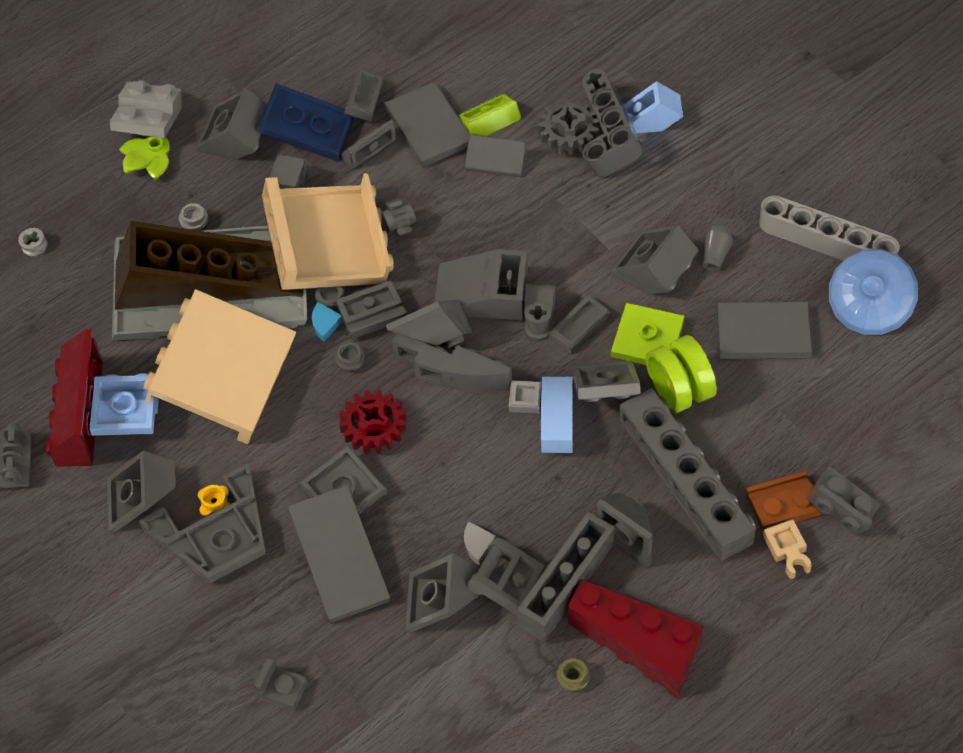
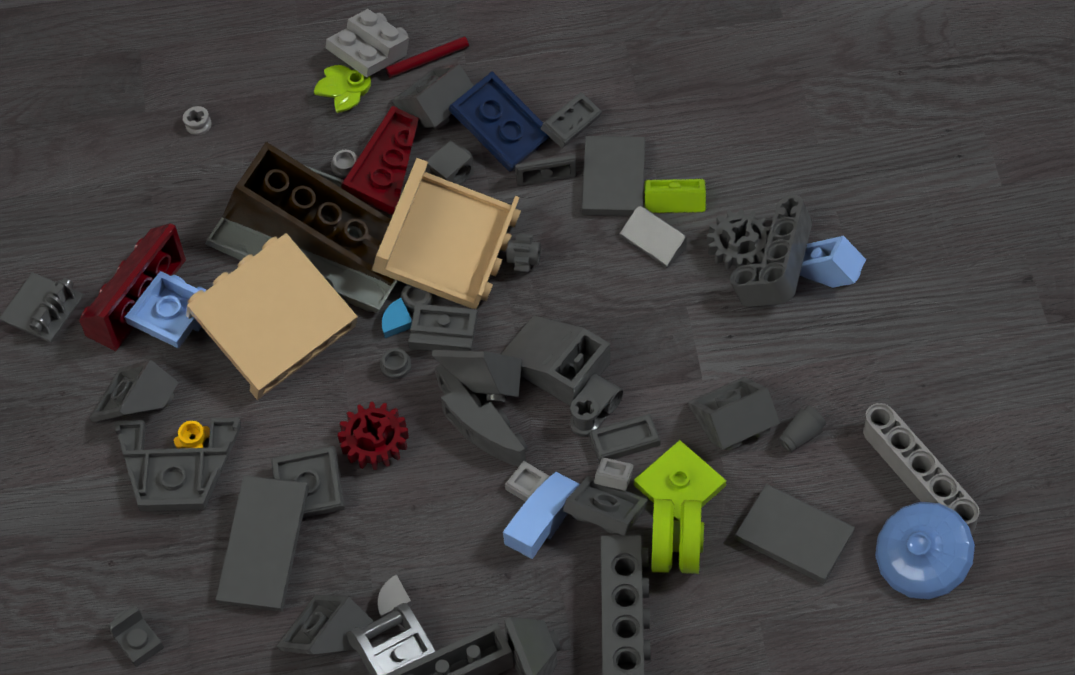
camera: 30 degrees right, 0 degrees up
(202, 100) = (427, 56): none -> dark red bar
(229, 199) = (382, 165): none -> dark red wing
(592, 354) = (613, 474): none -> light grey tile

